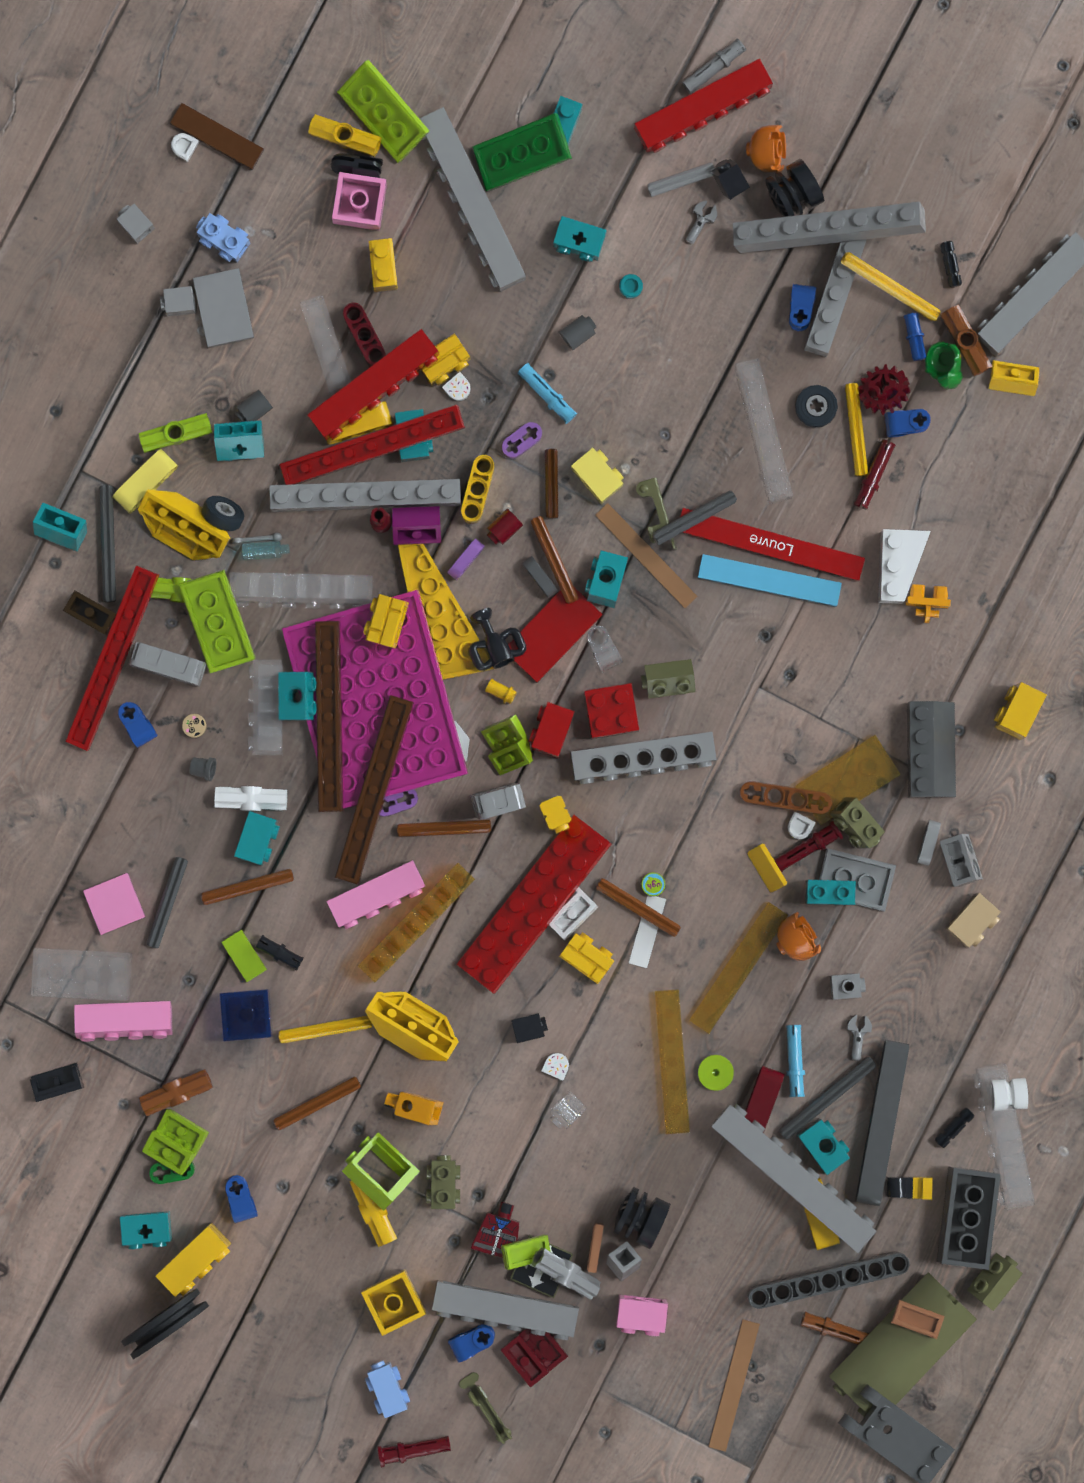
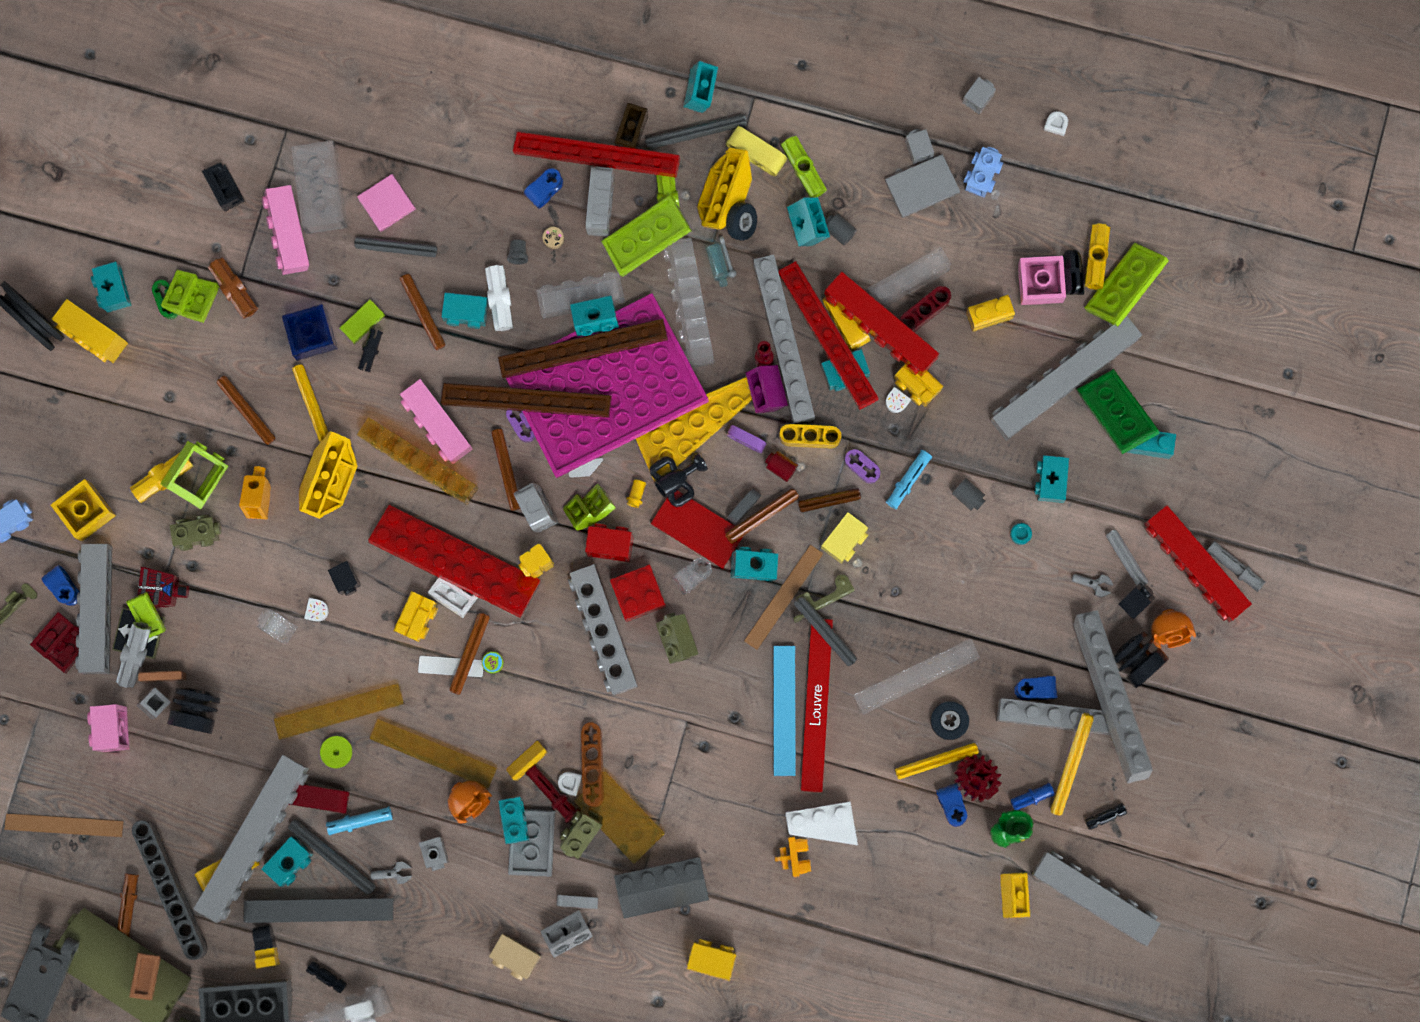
camera: 90 degrees right, 5 degrees down
(217, 136) = (1071, 149): reddish brown tile -> none
(241, 1203) = (147, 362): blue piece -> none
(386, 620) = (674, 377): yellow brick -> none
(870, 483) = (898, 785): dark red pin -> none
(959, 326) = (1028, 853): dark orange piece -> none

